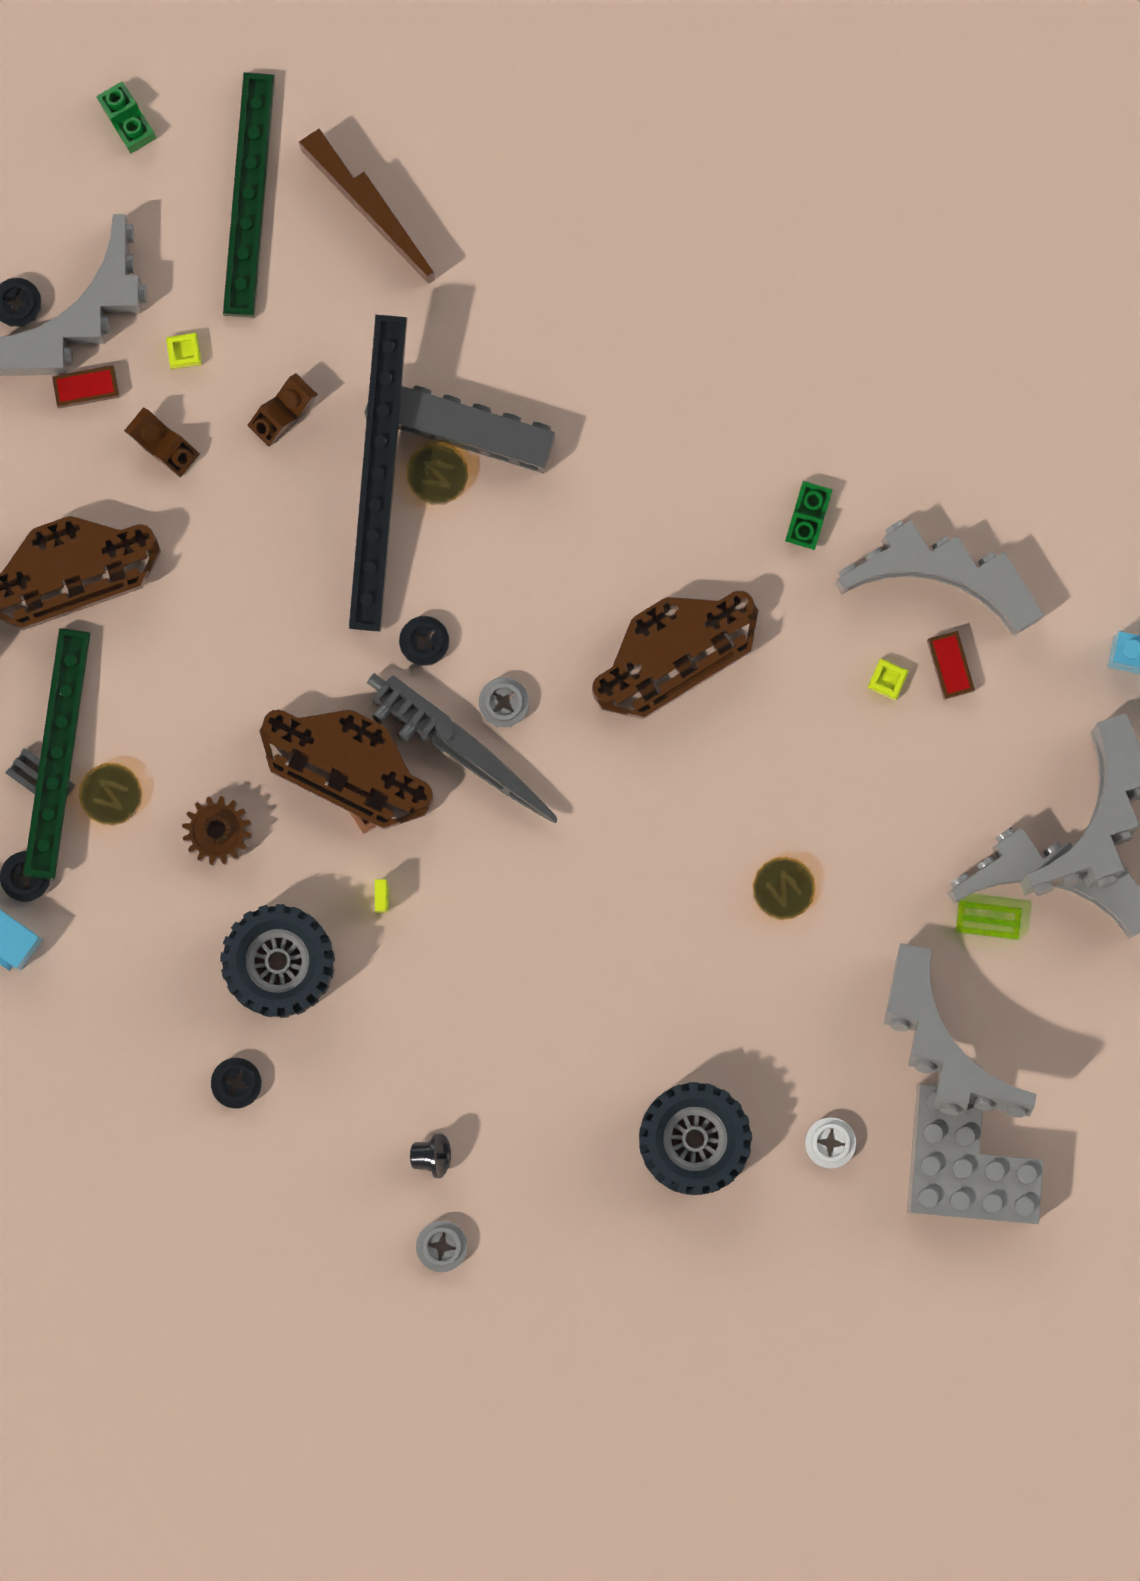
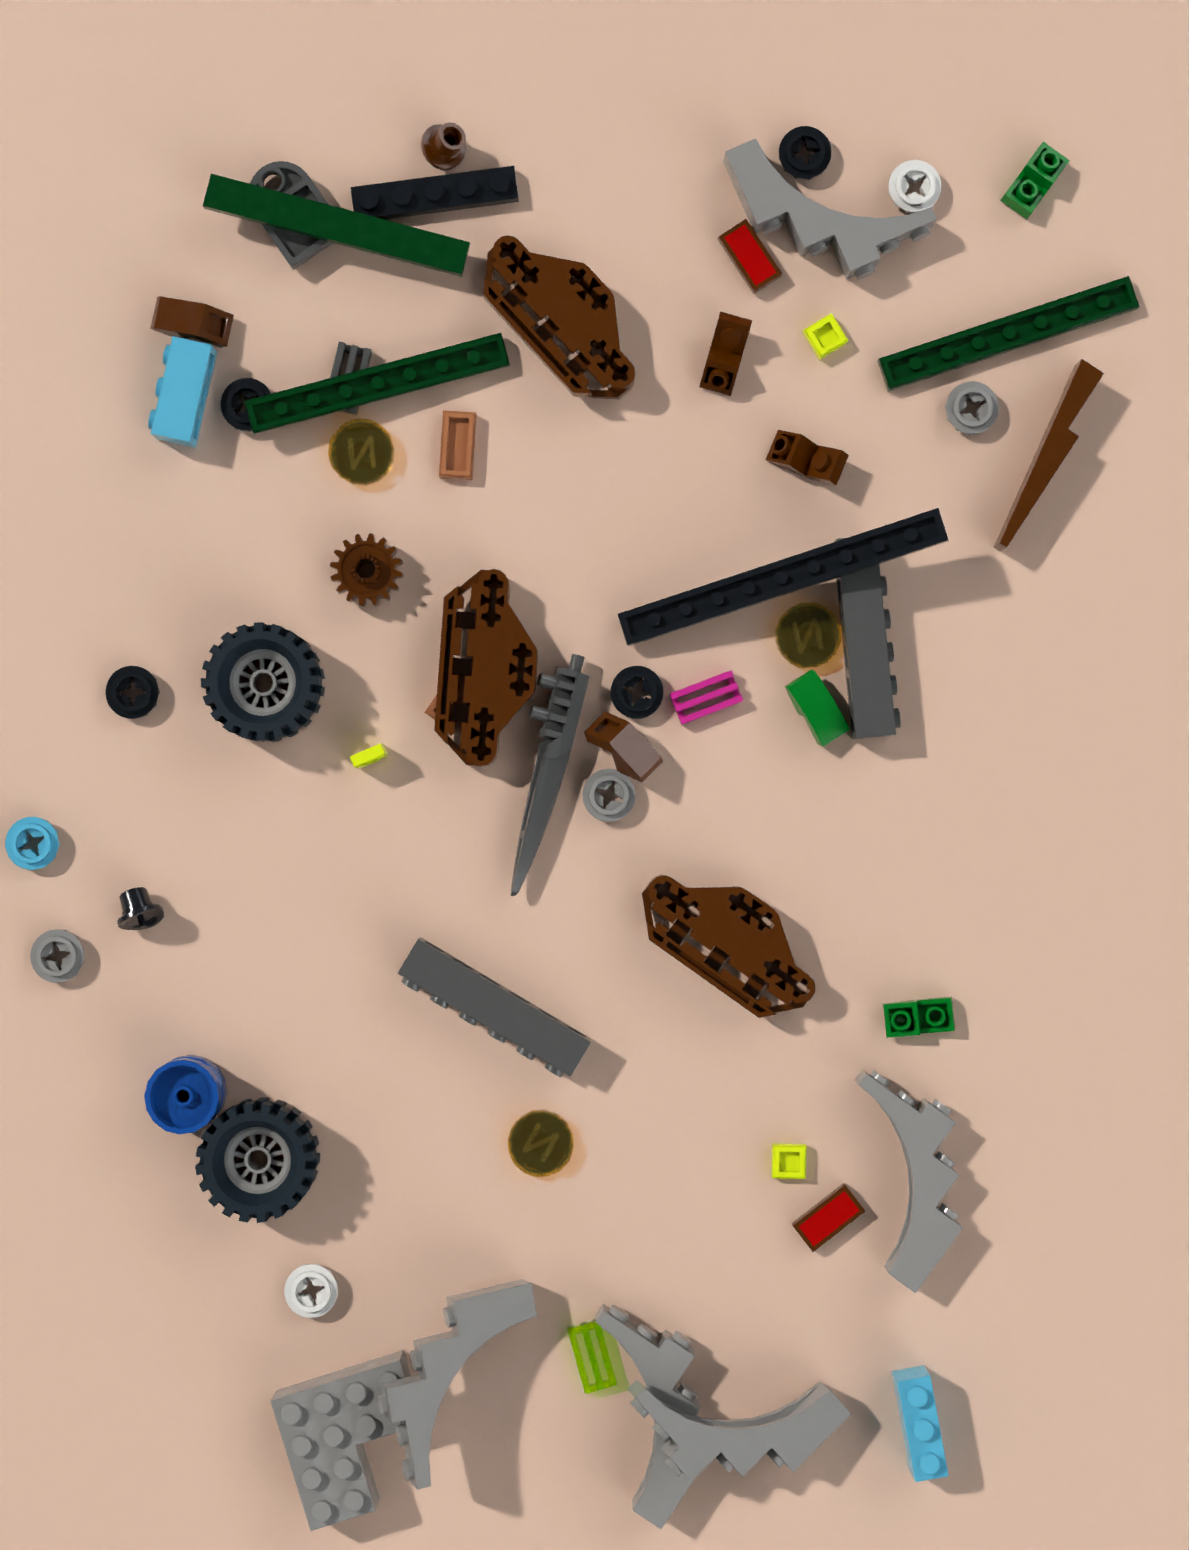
camera: 65 degrees right, 5 degrees up
(94, 209) = (914, 171): none -> white gear
(140, 707) = (457, 445): none -> nougat tile
(288, 243) = (975, 393): none -> light grey gear
(344, 1237) = (18, 837): none -> medium azure gear
(454, 556) = (703, 684): none -> dark pink tile
(474, 665) = (628, 747): none -> reddish brown slope
(503, 490) = (817, 707): none -> green slope
(616, 1197) = (188, 1114): none -> blue wheel
(646, 877) = (495, 1007): none -> dark grey brick

